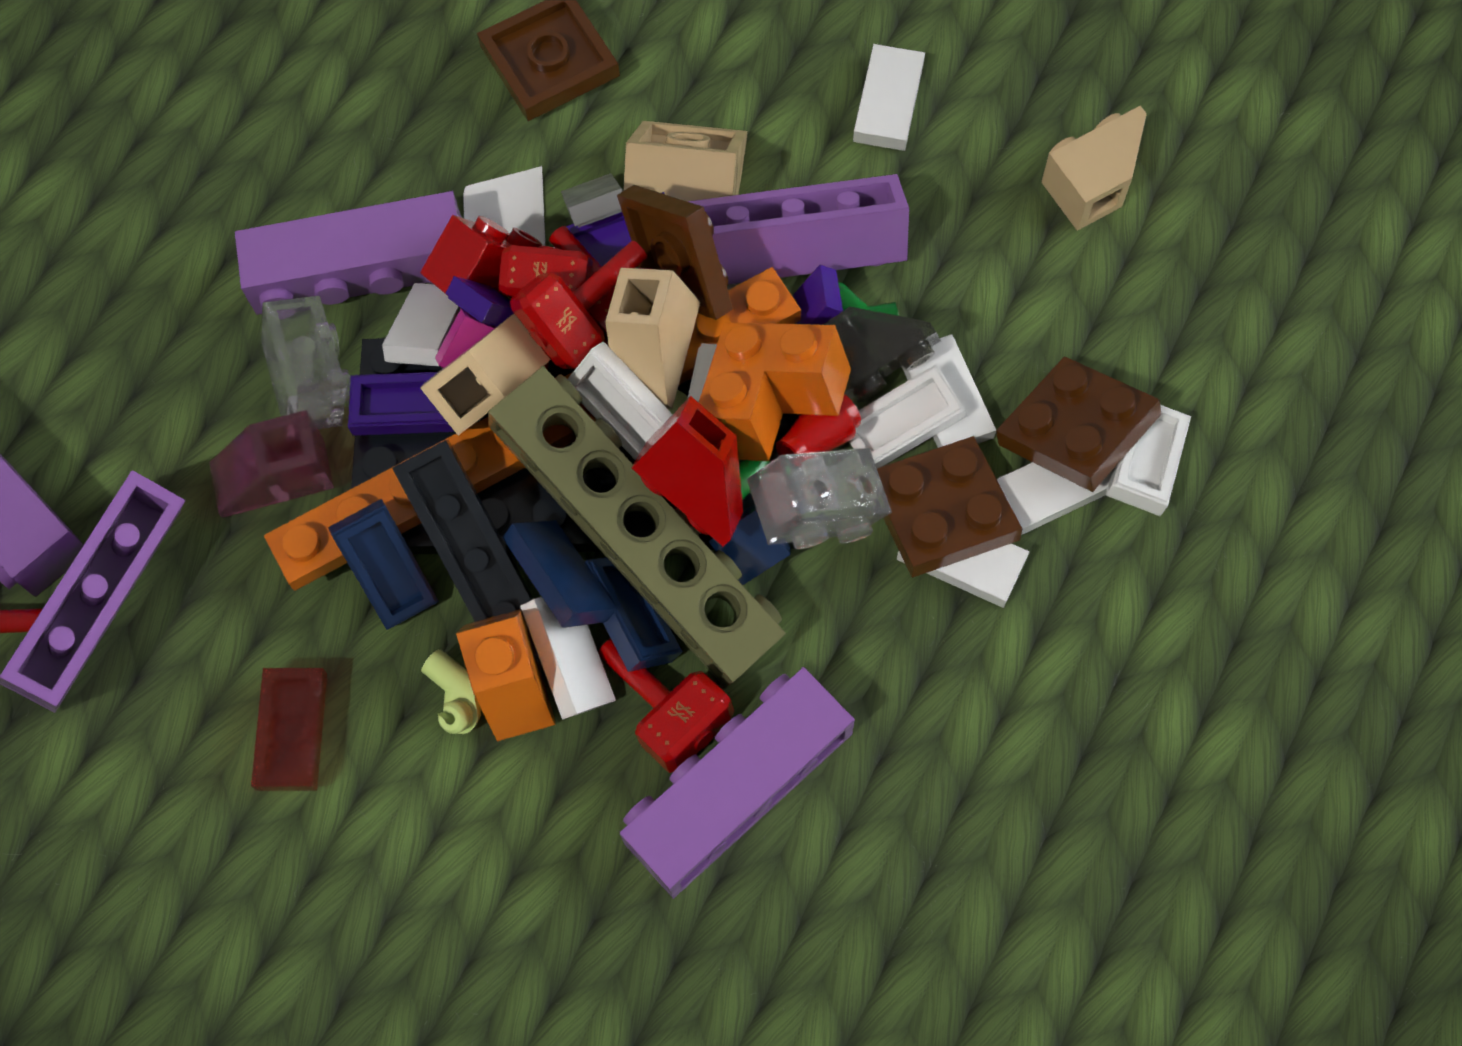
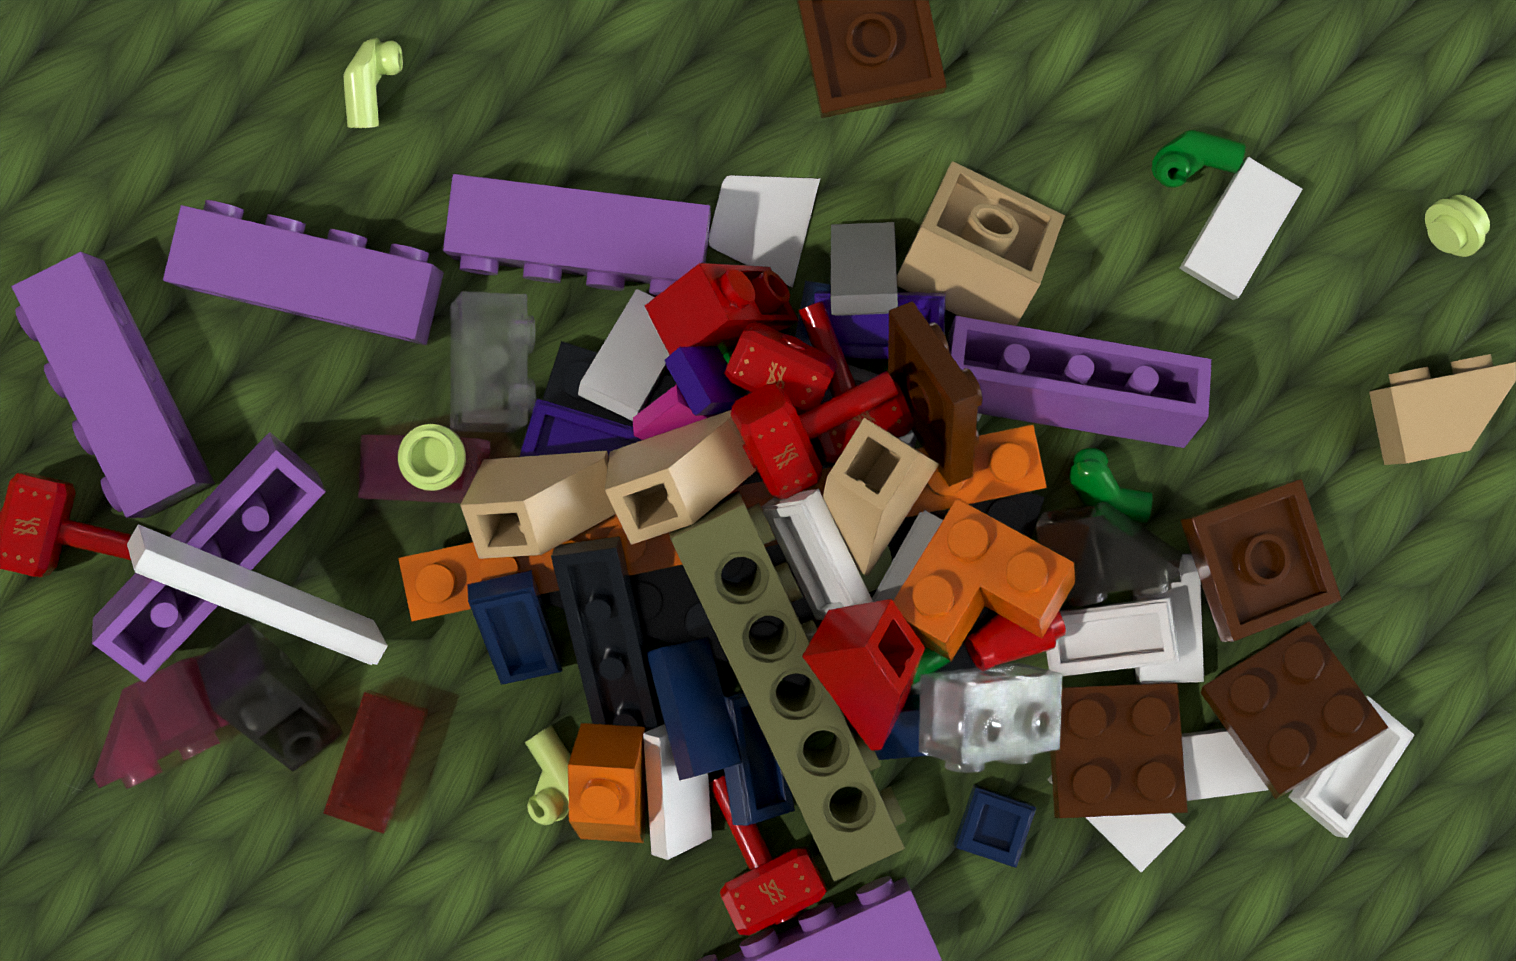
camera: 15 degrees right, 20 degrees up
(78, 755) = (155, 721): none -> clear pink slope
(129, 352) = (303, 273): none -> medium lavender brick
(141, 592) = (254, 595): none -> white tile
(145, 200) = (363, 75): none -> yellowish green arm
(179, 703) = (267, 698): none -> clear smoke slope
(268, 429) = (431, 457): none -> yellowish green plate
(373, 439) = (535, 502): none -> tan slope
(819, 297) = (1069, 475): dark purple tile -> none
(831, 55) = (1193, 151): none -> green arm
(864, 609) = (994, 826): none -> dark blue tile
(1002, 318) = (1261, 560): none -> reddish brown plate
(1054, 40) = (1457, 225): none -> yellowish green plate

